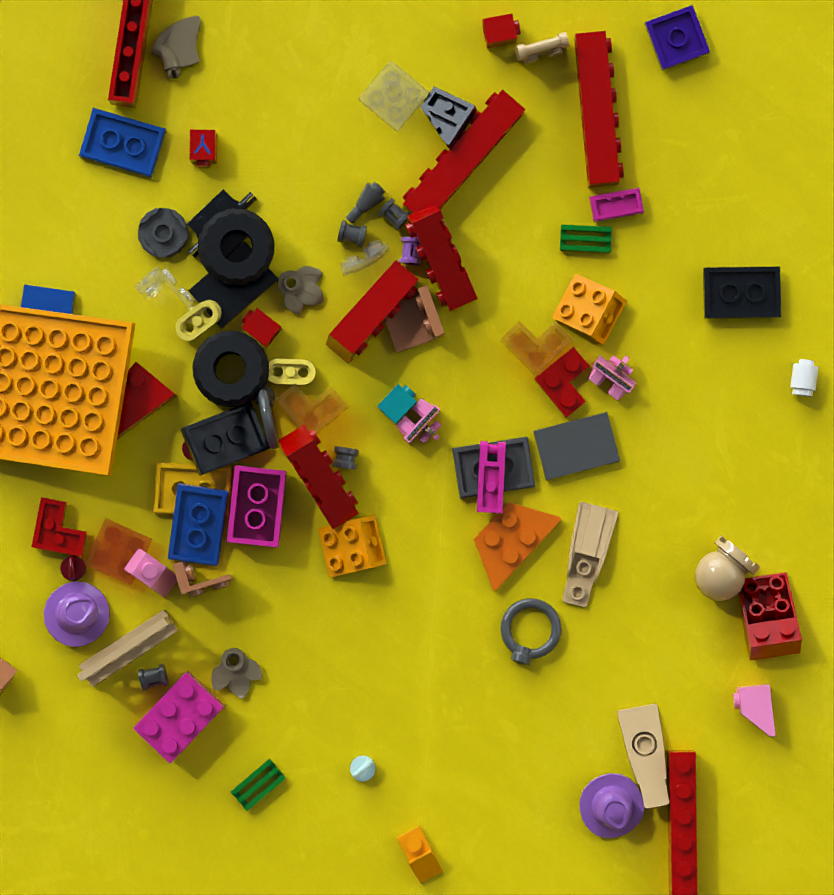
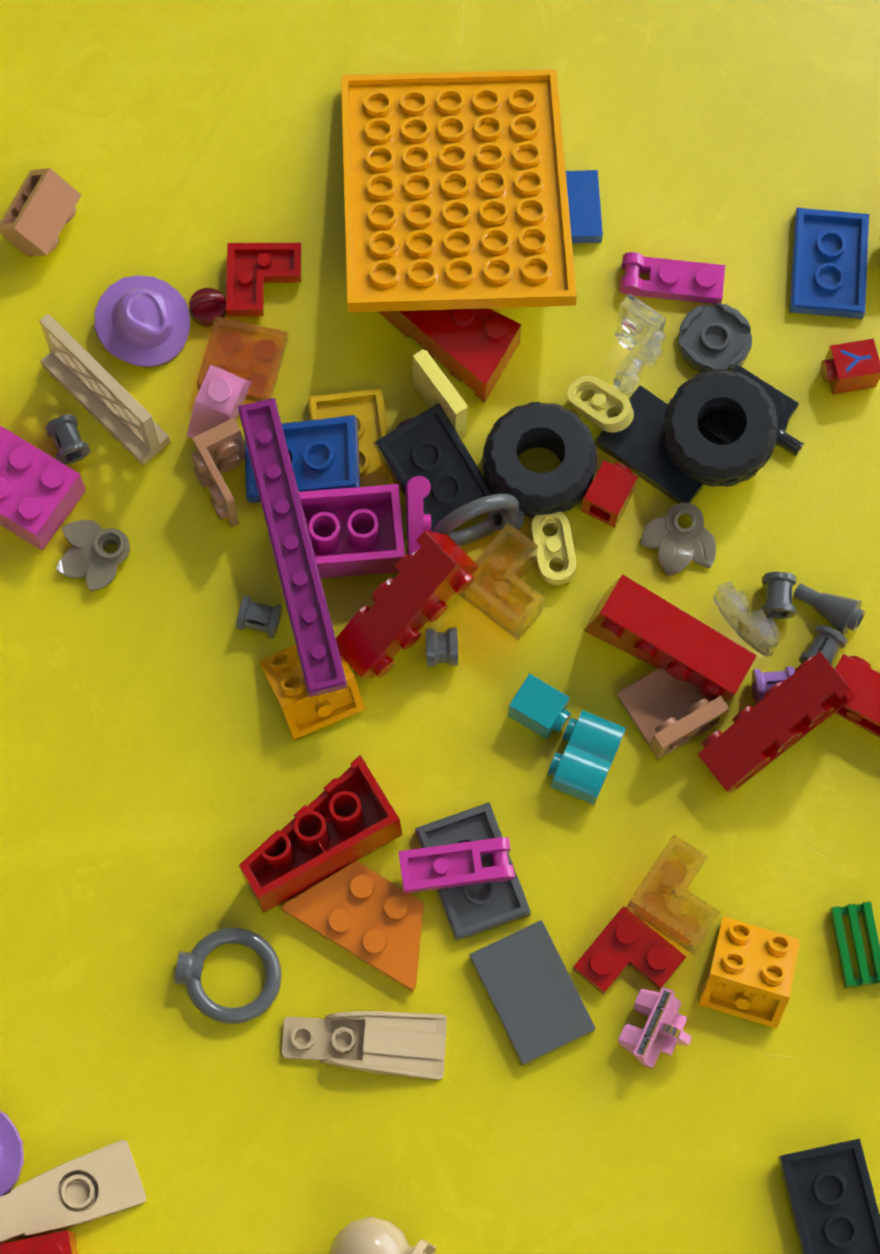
camera: 75 degrees right, 15 degrees down
(114, 250) = (672, 279): none -> dark pink plate
(174, 425) = (436, 388): none -> light yellow tile
(261, 457) = (416, 521): none -> dark pink plate
(265, 542) = (292, 548): none -> magenta tile
(301, 571) = (259, 616): none -> dark grey bush
(427, 413) = (503, 737): bright pink hips -> none
(435, 380) = (587, 756): none -> teal brick
(454, 550) = (323, 838): none -> red wedge

